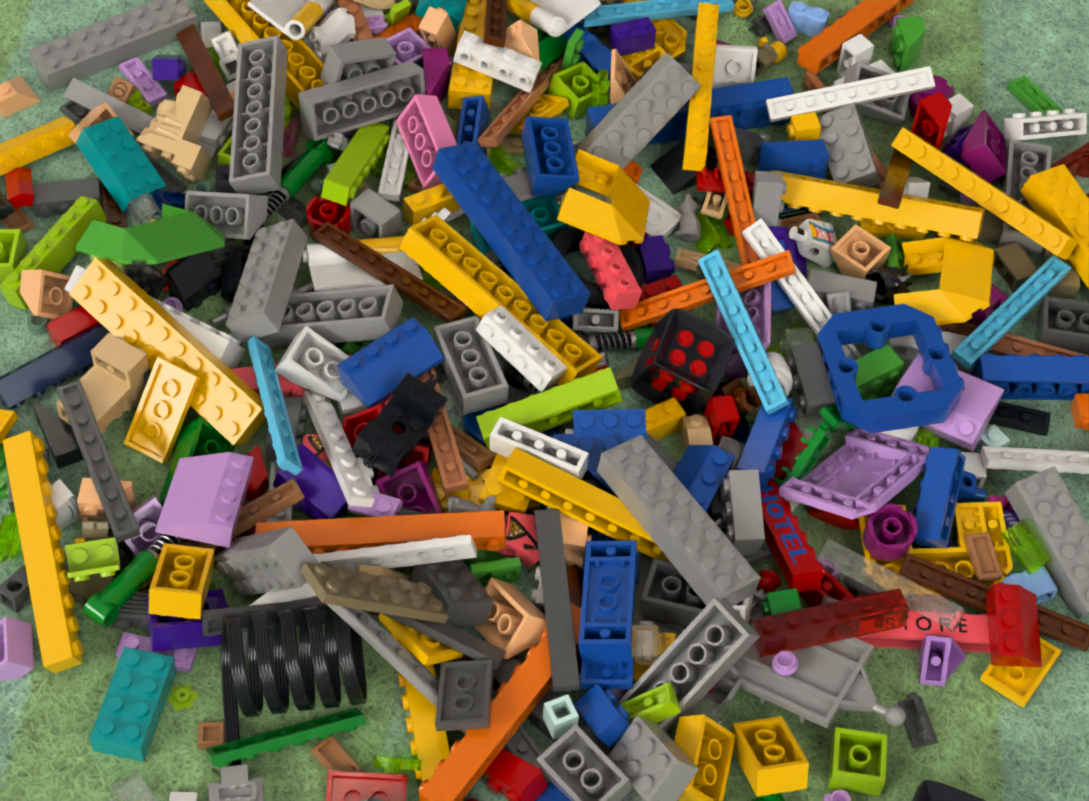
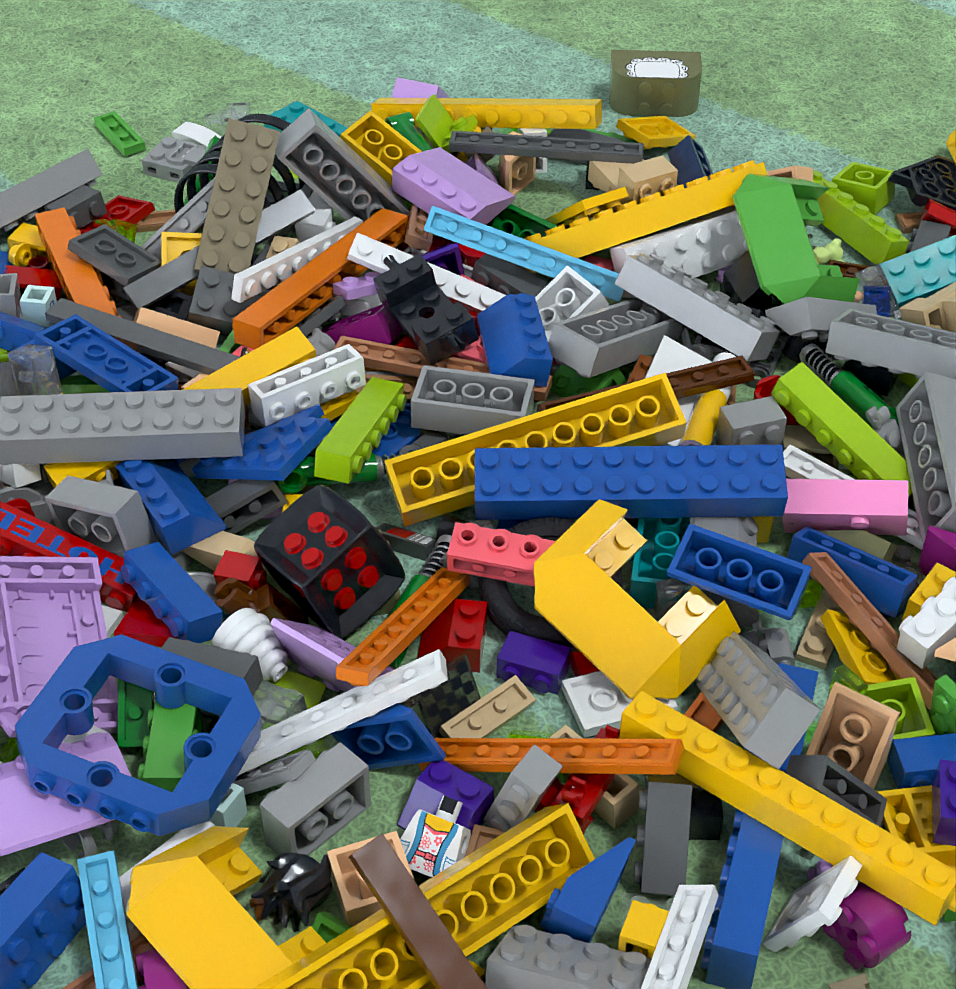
camera: 125 degrees right, 10 degrees down
(521, 348) = (449, 422): white brick -> none
(689, 224) = (551, 716): light grey animal -> none
(743, 332) = (321, 606): medium azure plate -> none
(806, 459) = (116, 609): green plate -> none

